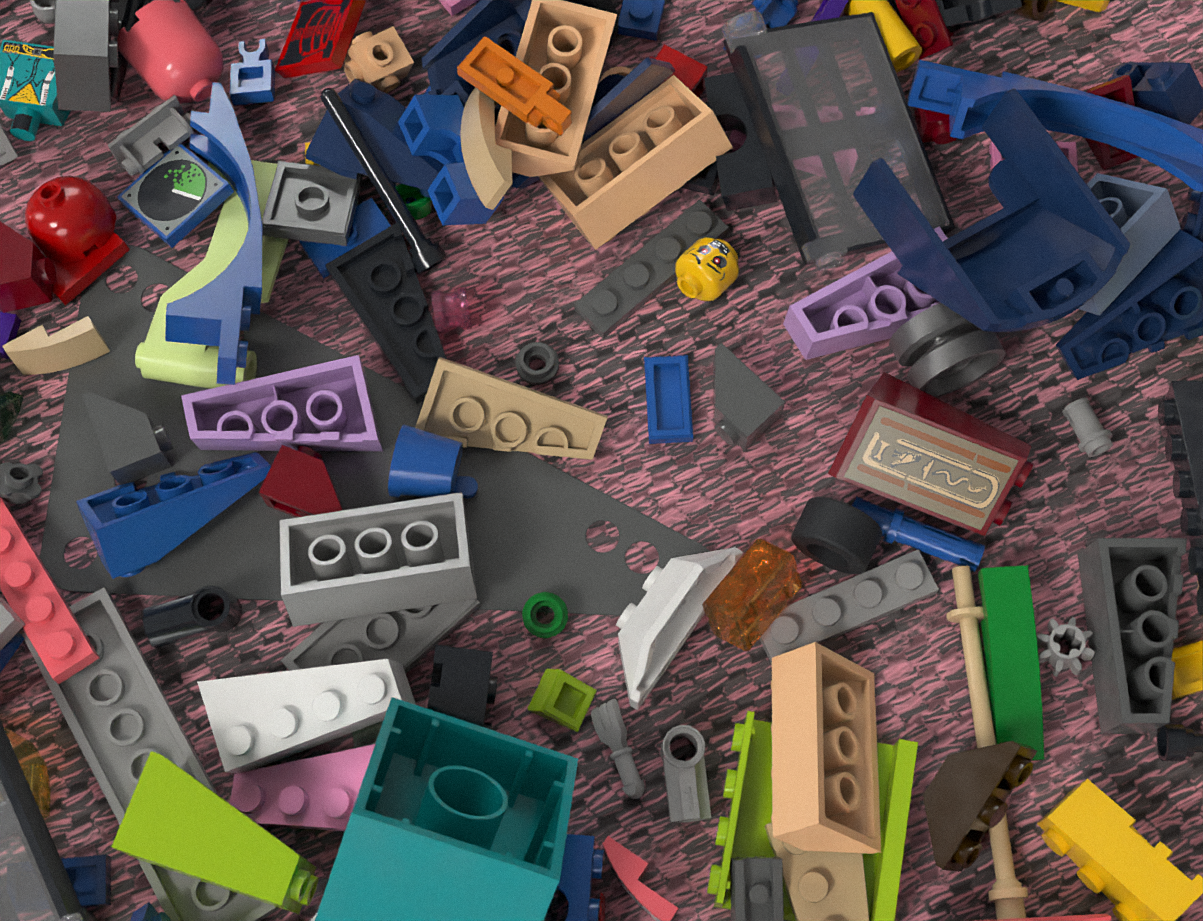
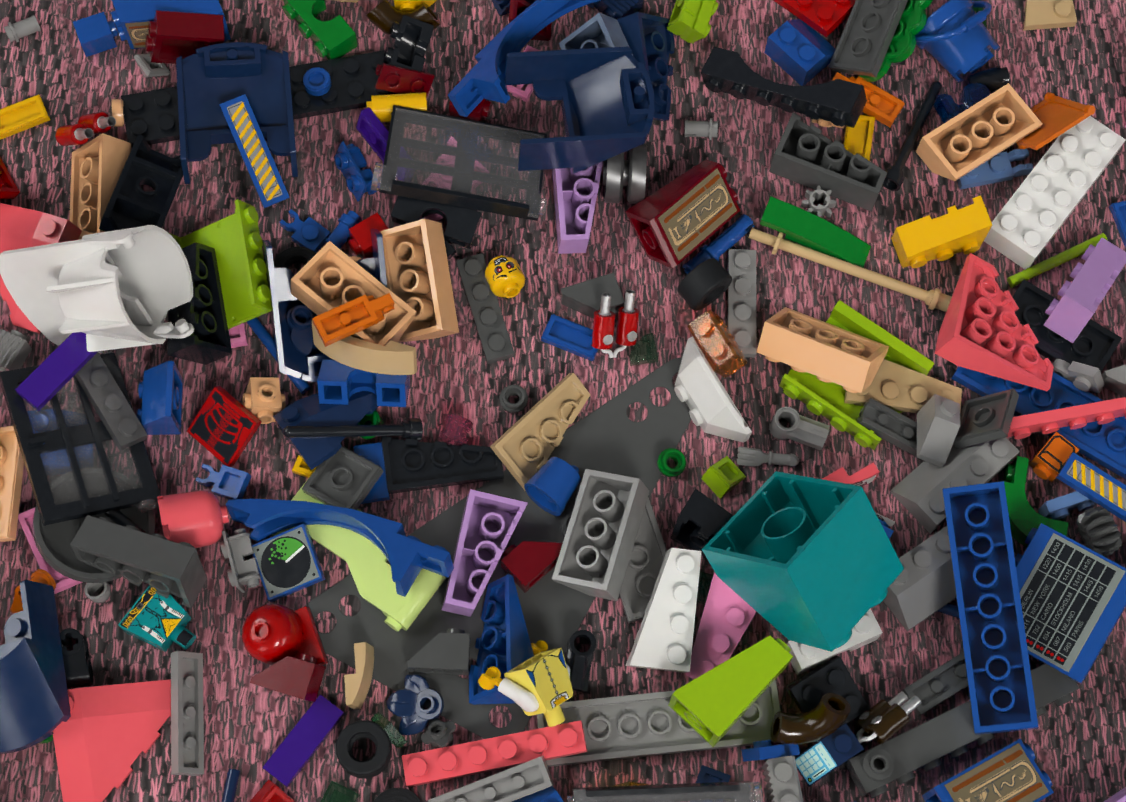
camera: 70 degrees left, 0 degrees up
(49, 436) = (410, 704): none -> dark blue plate
(115, 568) = (536, 684): none -> torso
(651, 44) = (341, 232): none -> blue animal
(695, 423) = (626, 324): none -> red piece
(698, 503) = (644, 351): none -> clear green tile
(971, 797) = (879, 289): dark brown slope -> none

